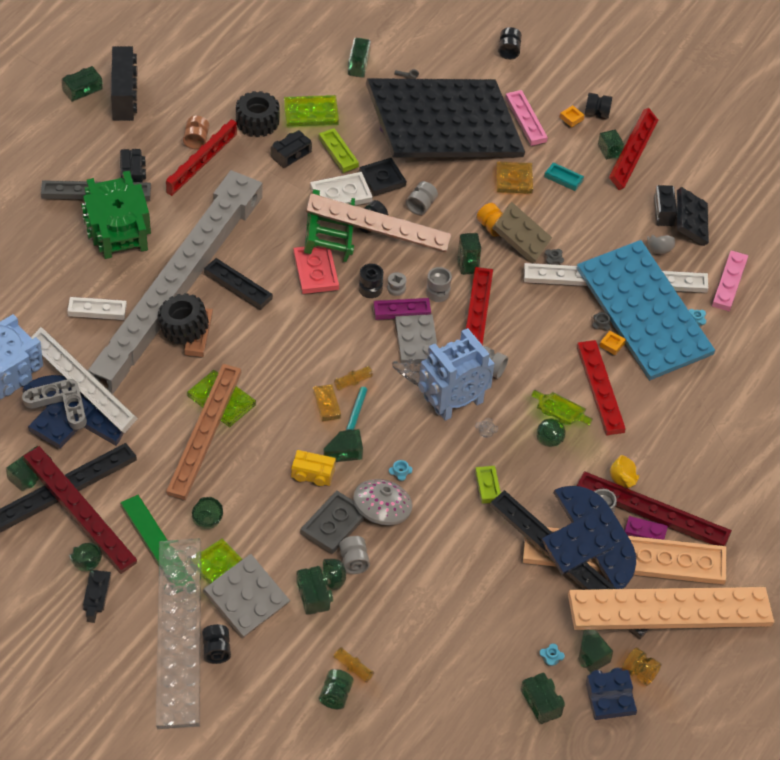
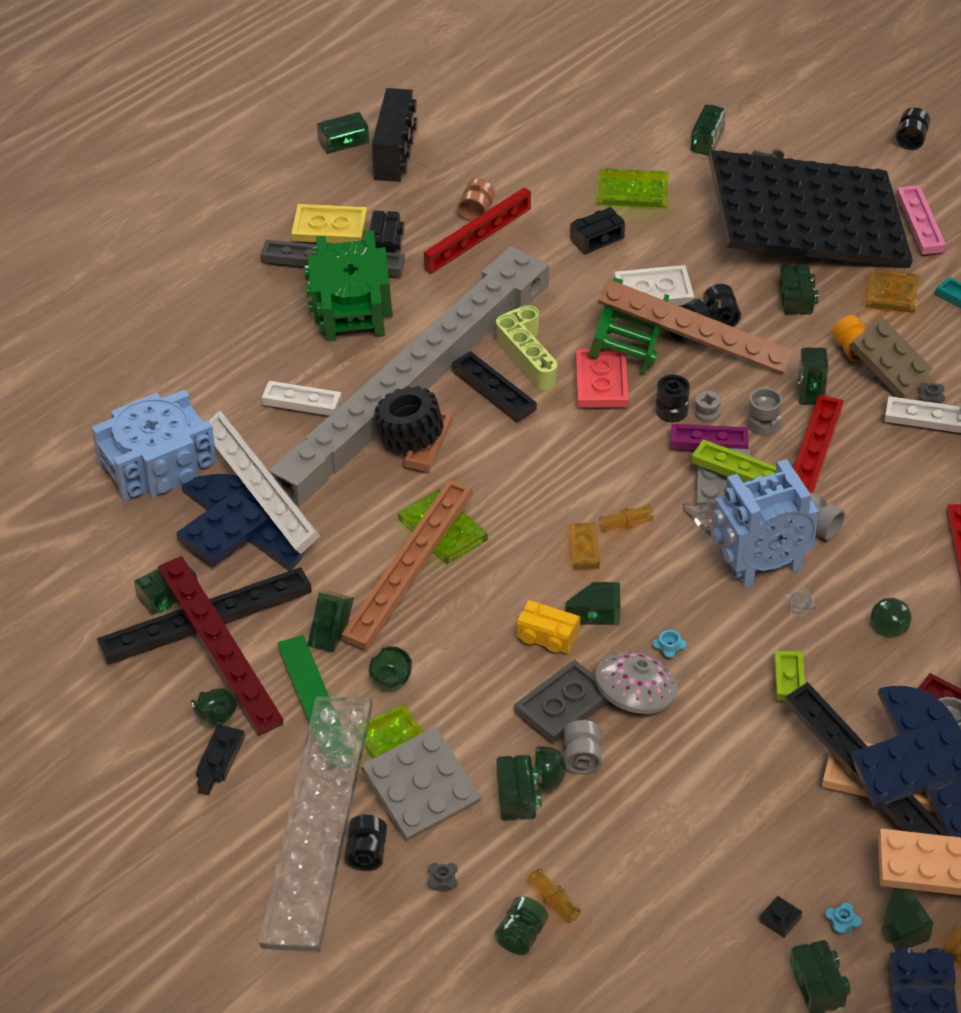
camera: 15 degrees right, 5 degrees down
(66, 396) = (232, 499): light grey beam -> none
(87, 162) = (335, 222): none -> light yellow plate
(155, 481) = (329, 620): none -> clear green slope
(246, 241) = (517, 338): none -> yellowish green beam
(257, 113) = (561, 184): black tyre -> none
(274, 665) = (442, 883): none -> dark grey plate
(338, 150) = (660, 237): lime plate -> none
(357, 408) = (625, 556): teal bar -> none
(383, 176) = (712, 270): black plate -> none
(394, 202) = (722, 304): none -> black wheel
(421, 198) = (760, 303): light grey wheel -> none
(426, 329) = (730, 462): none -> lime plate
(446, 183) = (797, 289): none -> clear green brick
(509, 659) = (780, 916): none -> black plate
(561, 408) = (909, 586): clear neon green plate -> none

